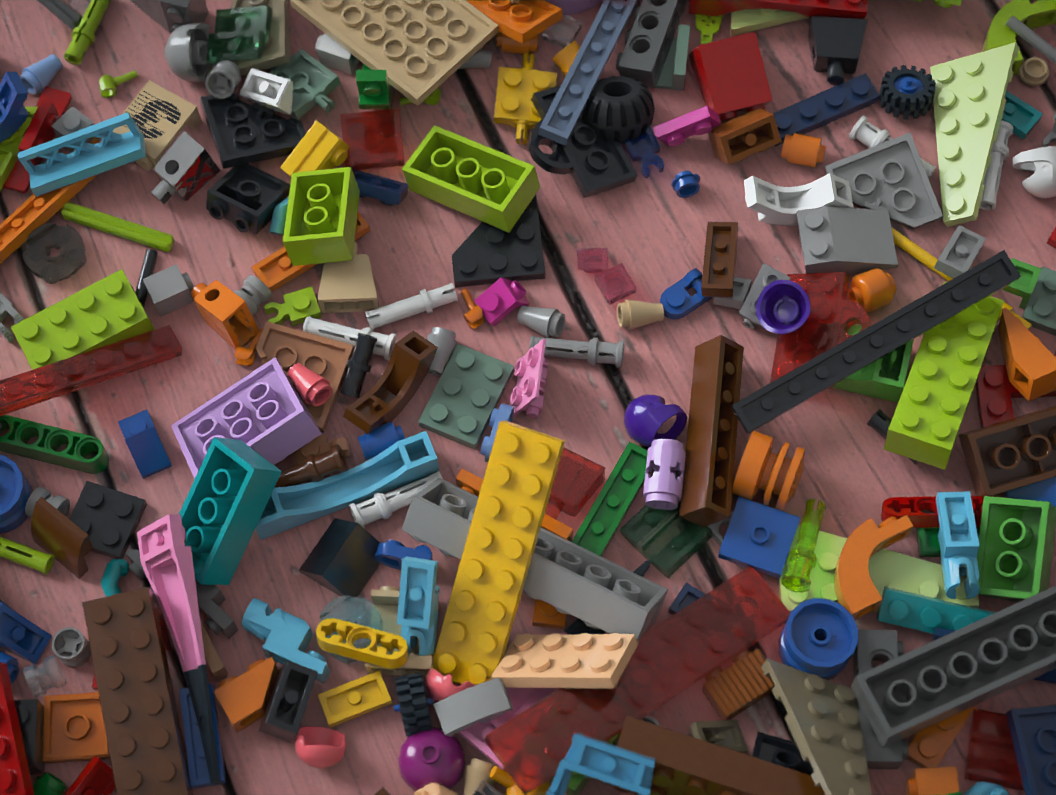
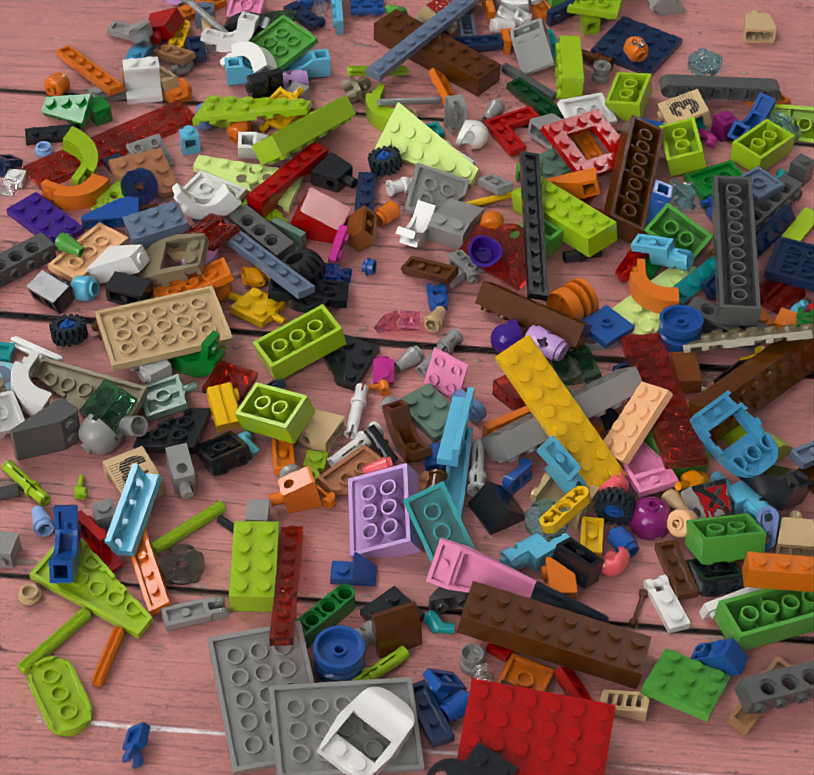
camera: 65 degrees left, 20 degrees down
(268, 91) = (161, 408): white slope -> none
(366, 743) = (621, 537): none -> blue brick
(412, 440) = (455, 429): none -> medium azure fence
(472, 706) = (637, 473): light grey slope -> none
(802, 557) = (631, 312): clear neon green pin -> none

